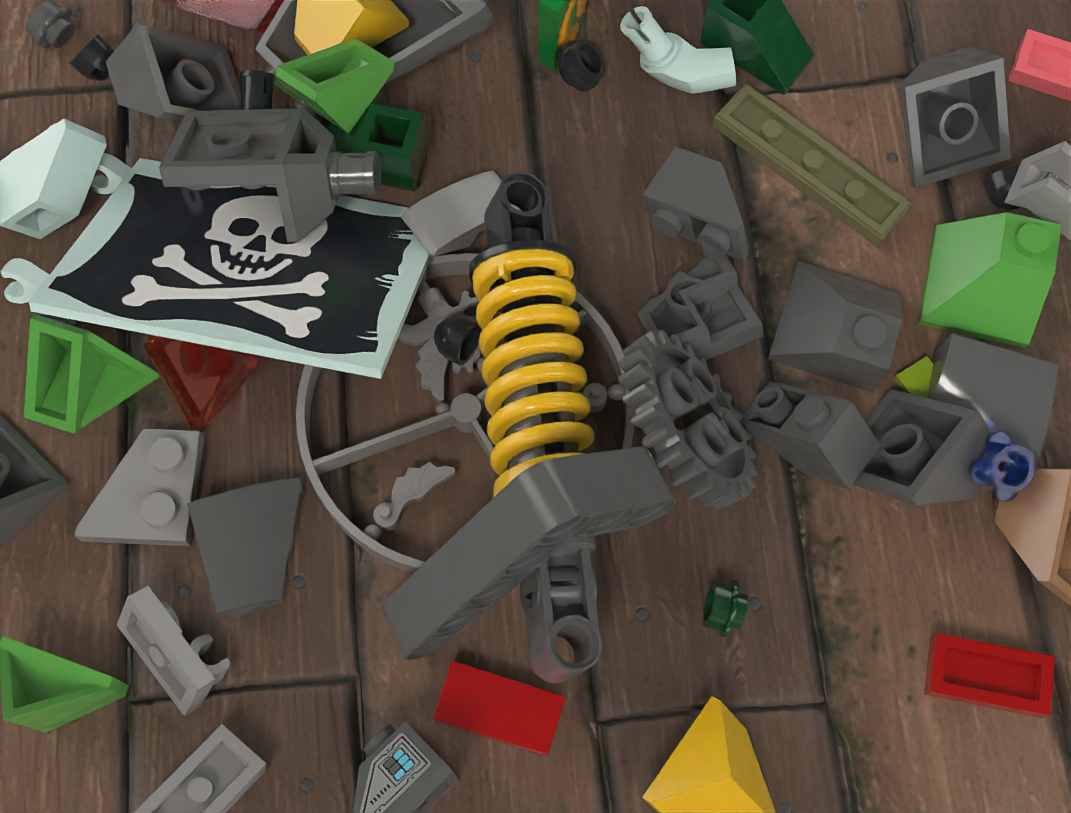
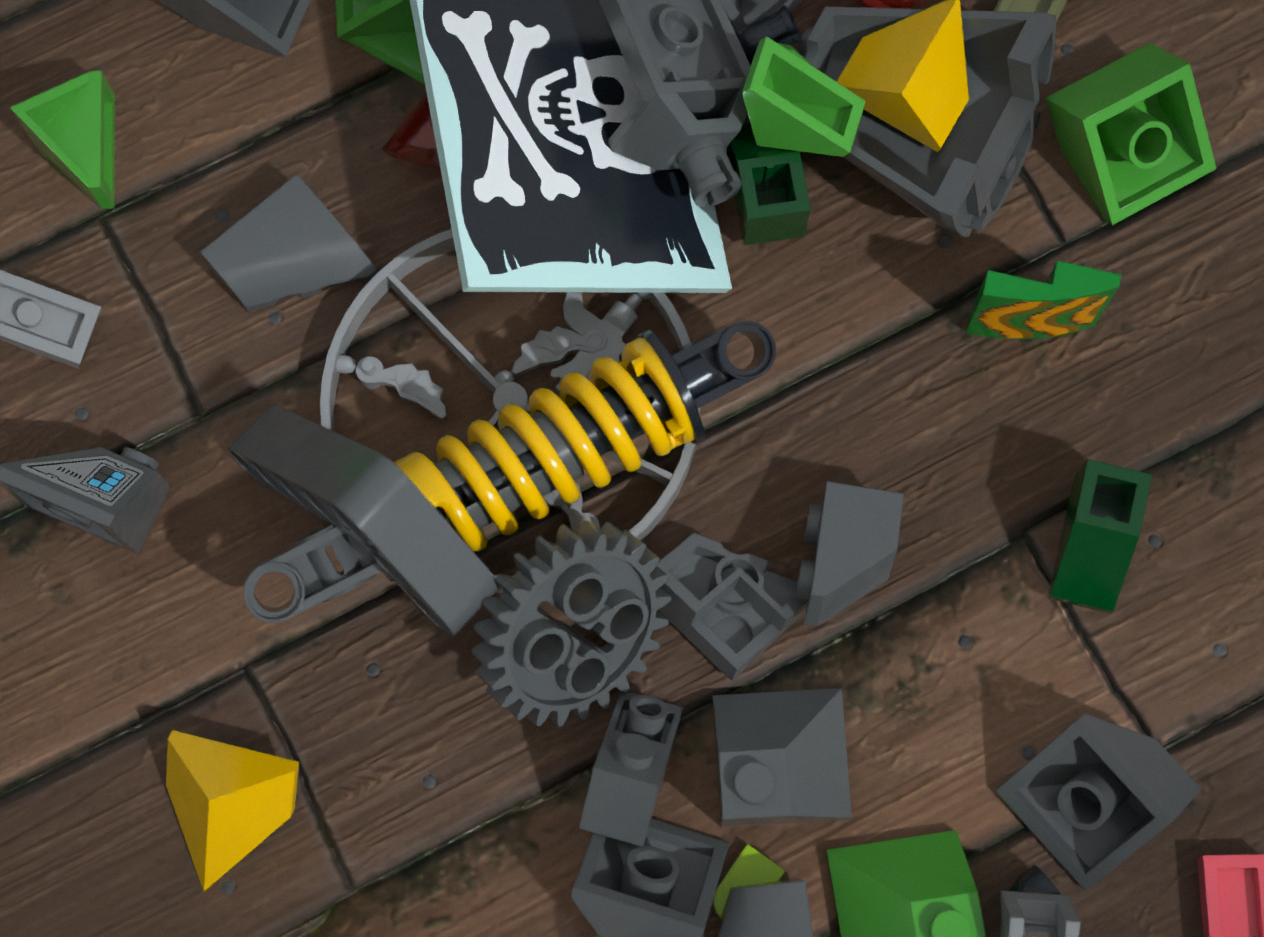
camera: 70 degrees right, 5 degrees up
(148, 492) = (306, 134): light grey wing -> none
(158, 640) = (165, 204): light grey plate -> none
(453, 214) = (721, 293): light grey slope -> none
(457, 339) = (576, 354): black hinge -> none
(499, 708) = (216, 562): red tile -> none
(581, 64) = (984, 365): black plate -> none
(676, 61) = (1030, 457): light aqua arm -> none
(724, 607) = (404, 747): dark green plate -> none
(812, 165) = (971, 662): olive tile -> none

